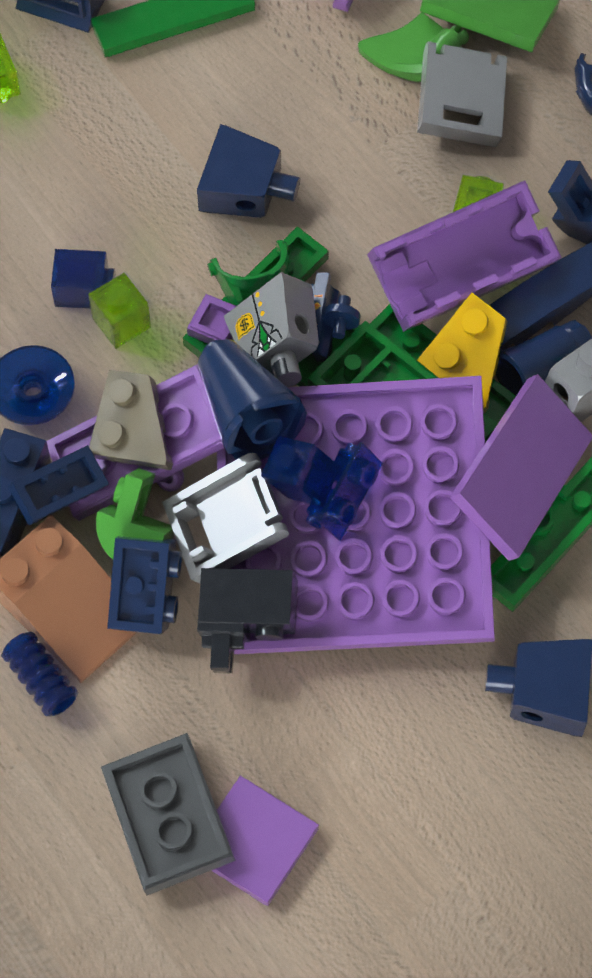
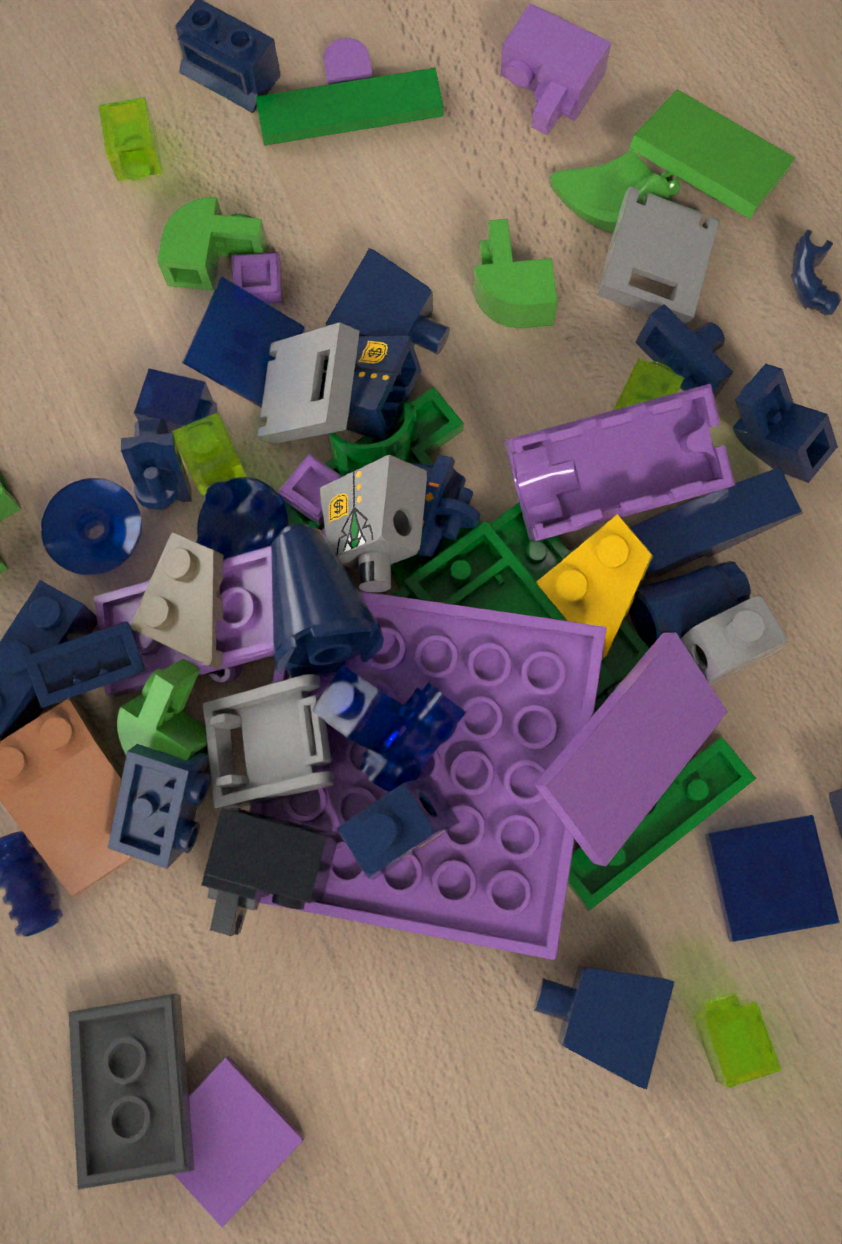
camera: 15 degrees right, 10 degrees up
(71, 137) = (199, 236): none -> bright green brick
(79, 324) = (155, 465): none -> dark blue hips
(124, 166) = (259, 275): none -> medium lavender tile
(129, 219) = (236, 340): none -> clear blue piece
(158, 351) = (240, 516): none -> clear blue dish
(181, 239) = (294, 384): none -> light grey container
(237, 231) = (381, 383): none -> dark blue torso
(344, 557) = (397, 826): none -> dark blue torso
(345, 141) = (509, 291): none -> bright green brick
(503, 165) = (684, 351): none -> dark blue tile

